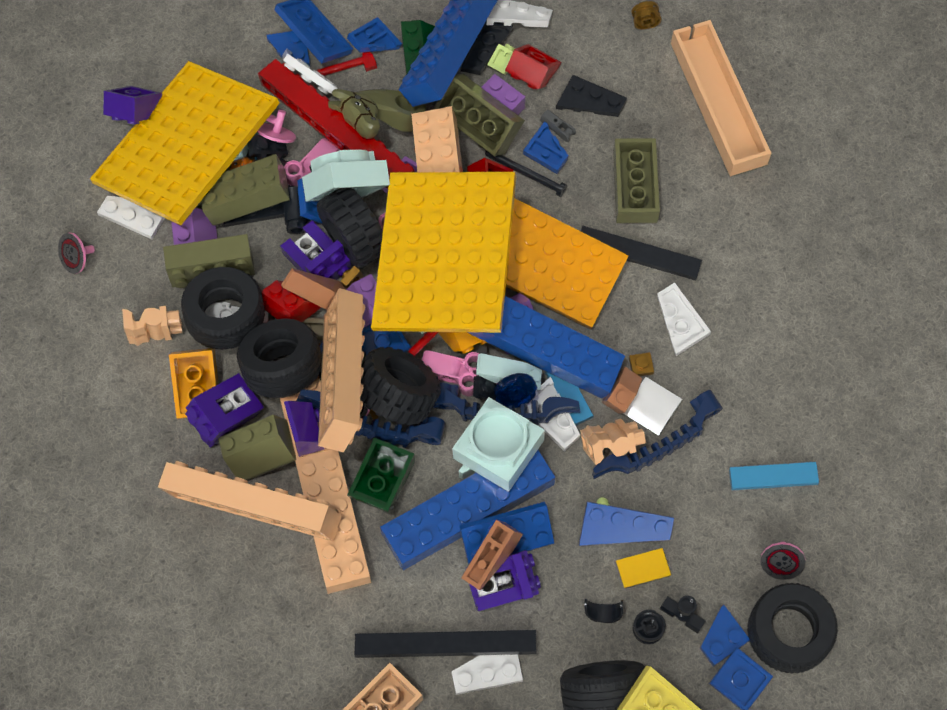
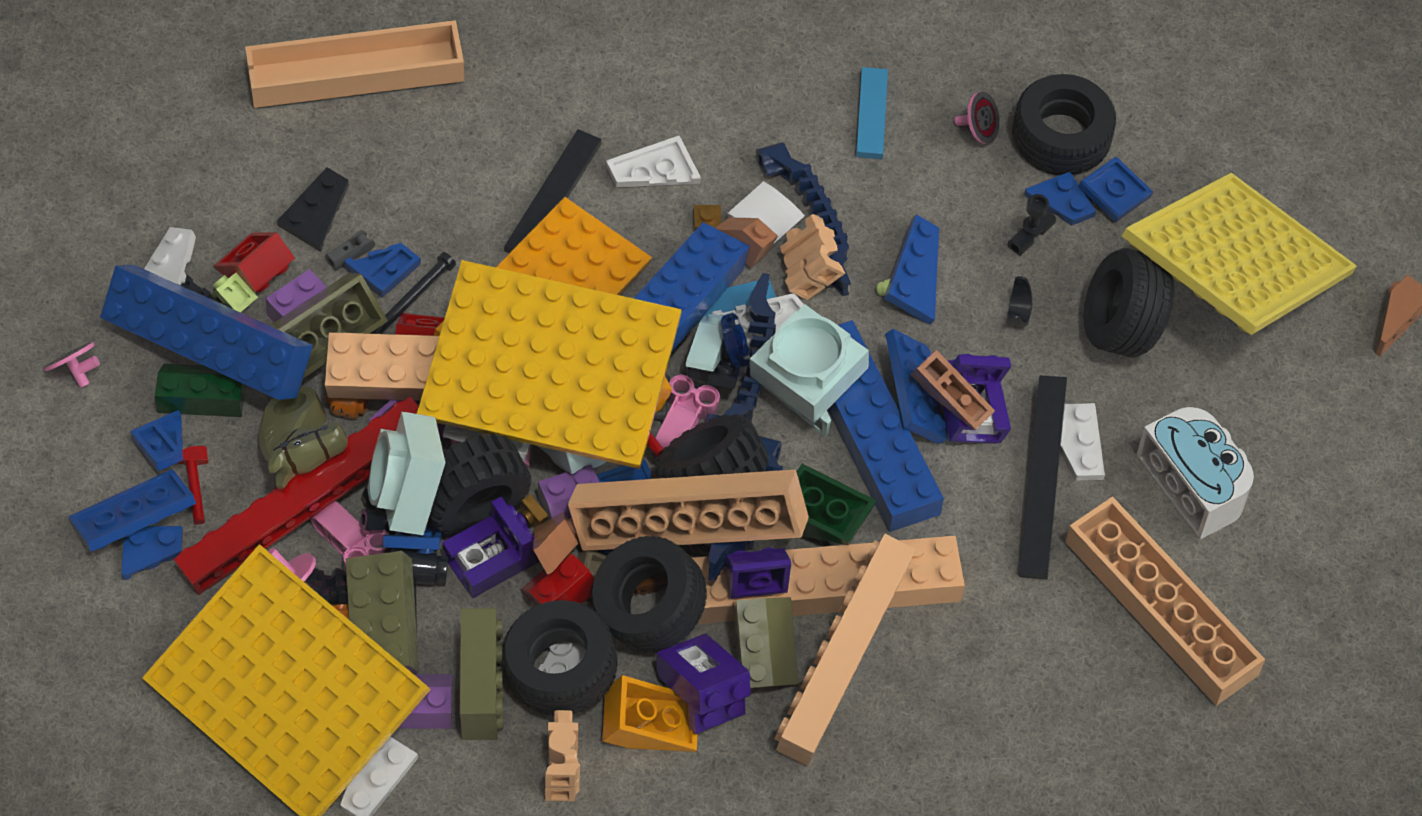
camera: 85 degrees left, 10 degrees down
(130, 103) = (200, 754): dark purple slope -> none
(291, 63) = (210, 519): white wing -> none
(636, 180) = (456, 173): olive brick -> none
(643, 568) = (971, 259): yellow piece -> none
(646, 15) = (210, 121): pearl gold wheel -> none
(648, 627) = (1044, 266): black wheel -> none

